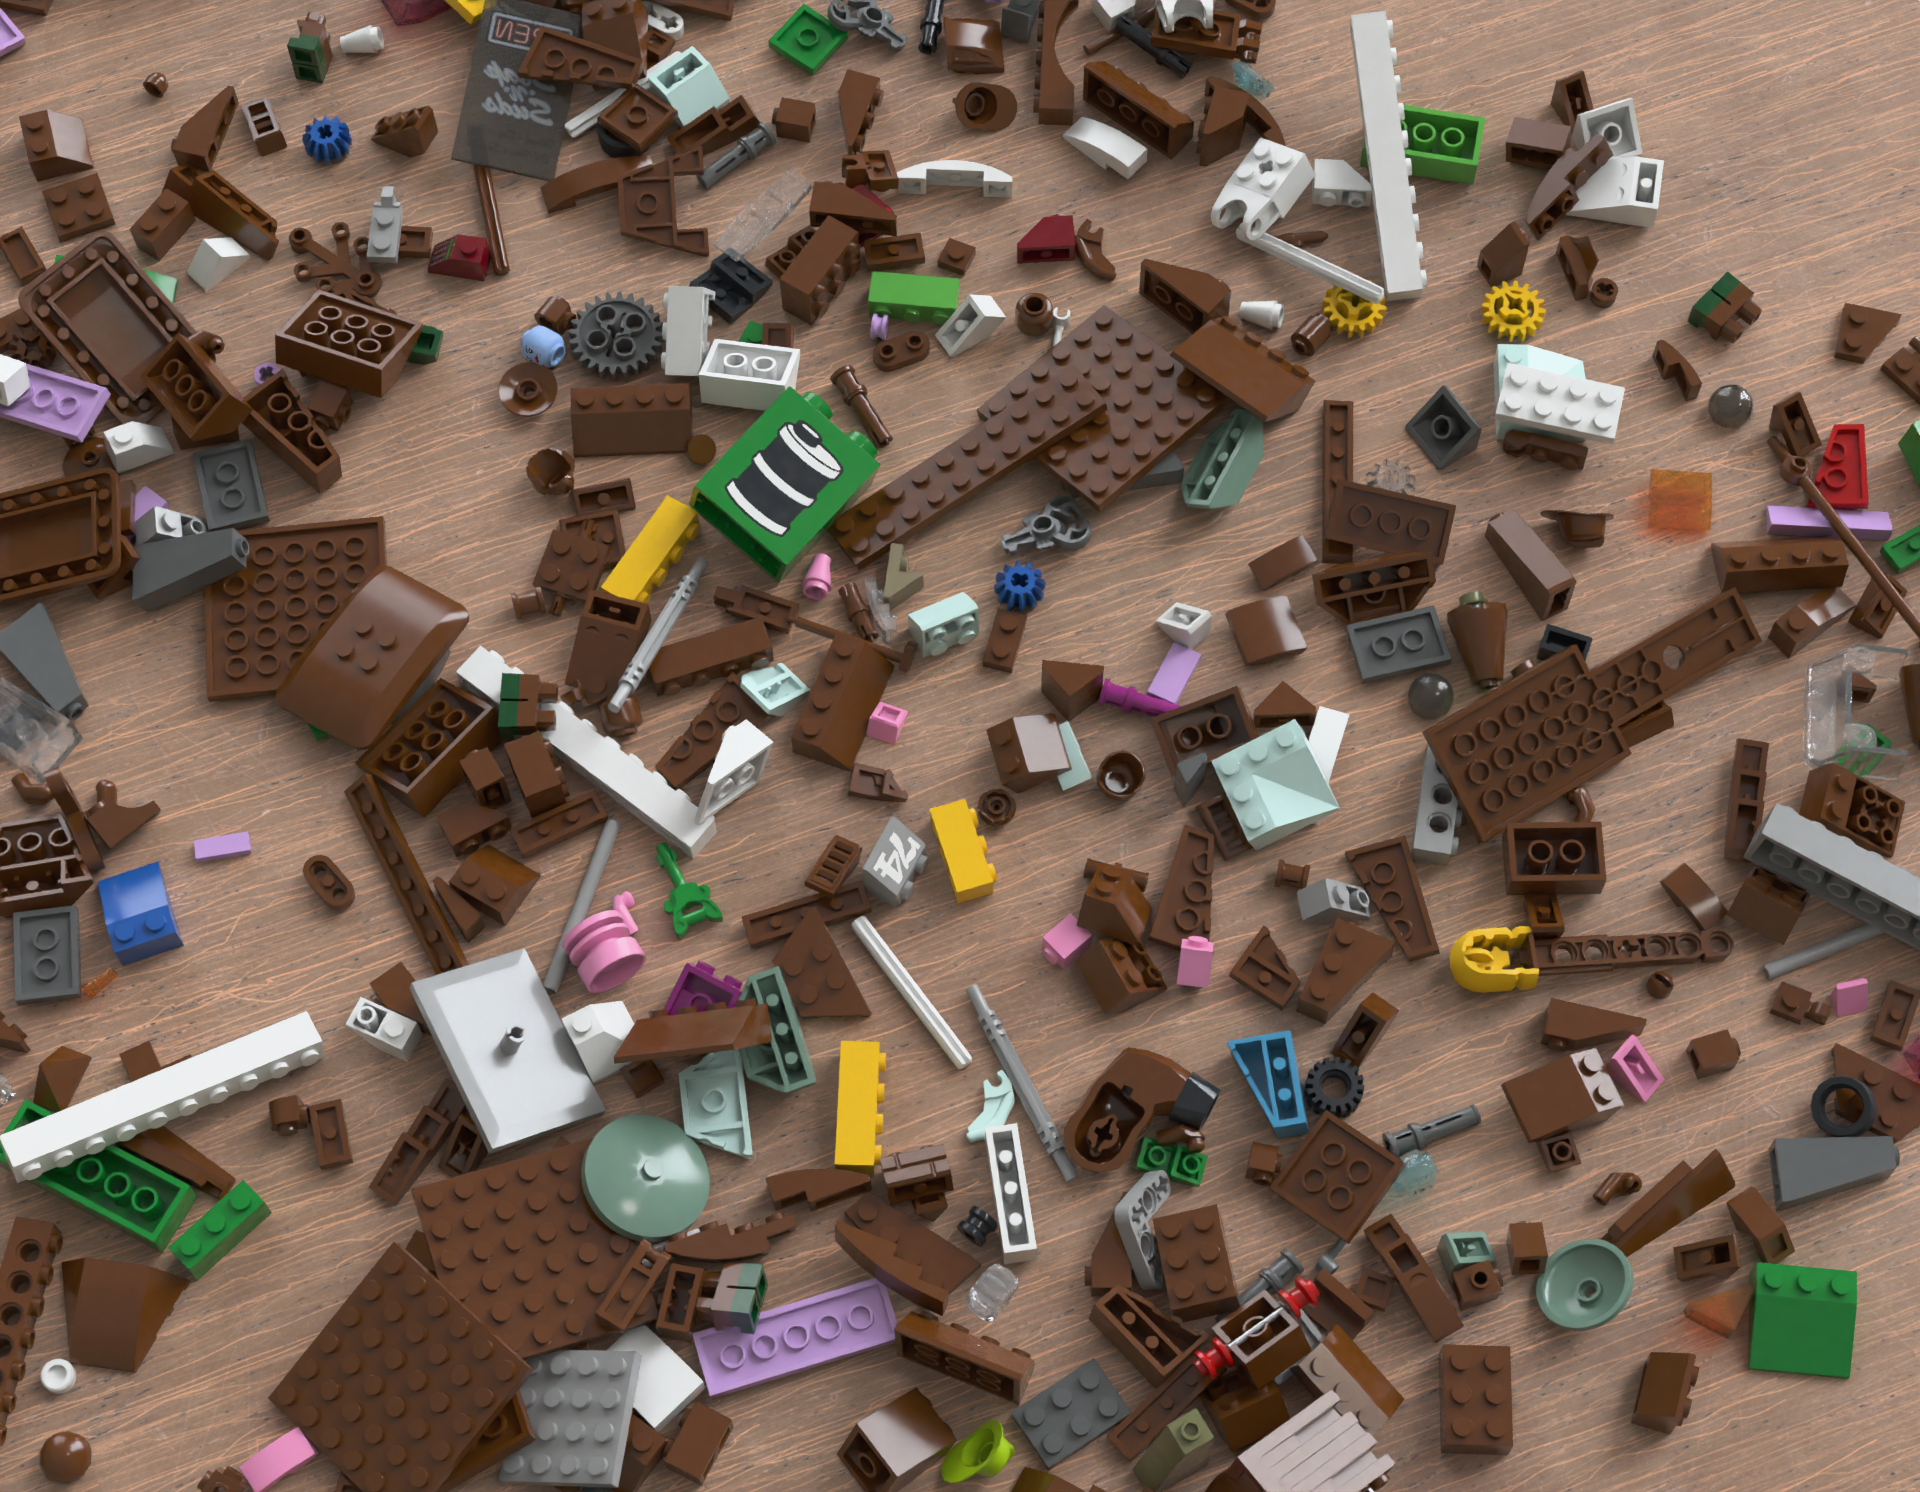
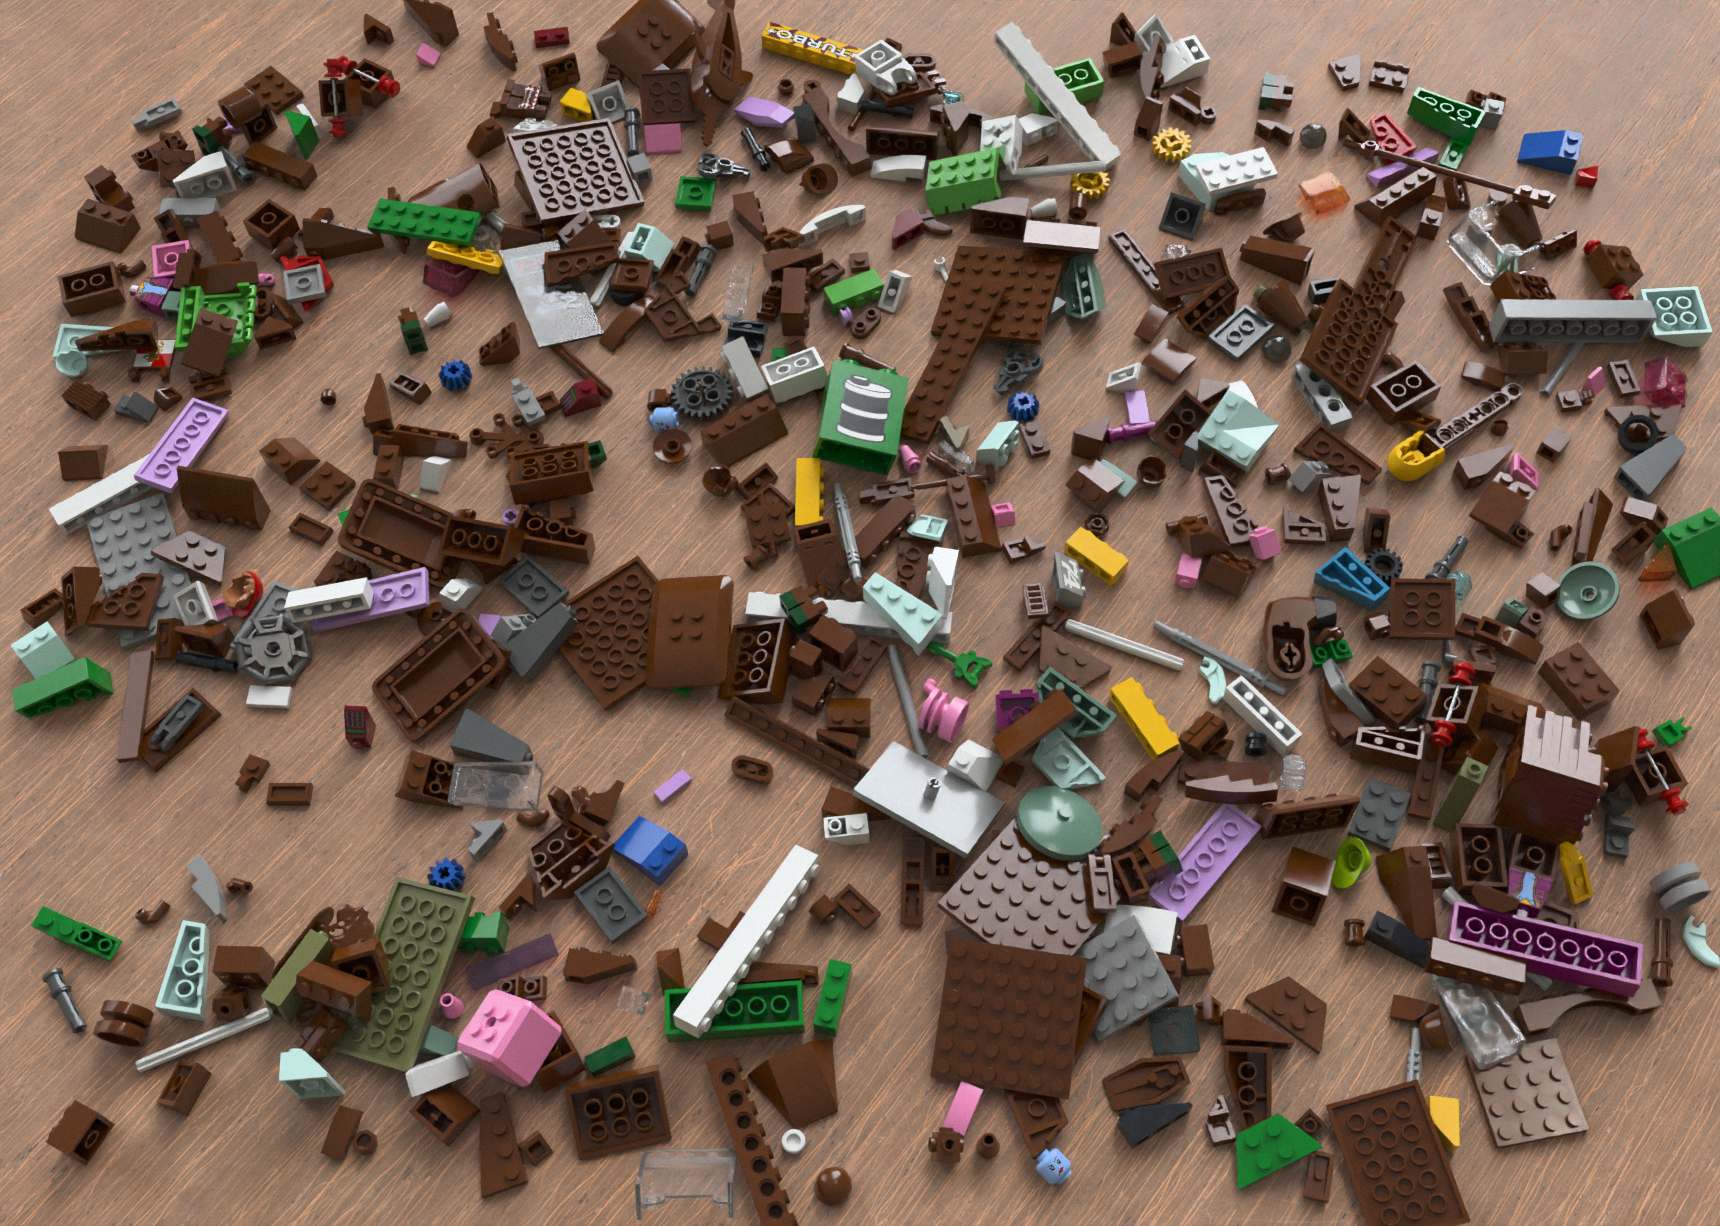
camera: 30 degrees left, 5 degrees down
(646, 792) = (903, 612): none -> light aqua wedge
(700, 449) = (793, 427): reddish brown tile -> none
(1034, 314) = (926, 267): reddish brown head -> none
(1169, 211) = (963, 180): none -> bright green slope

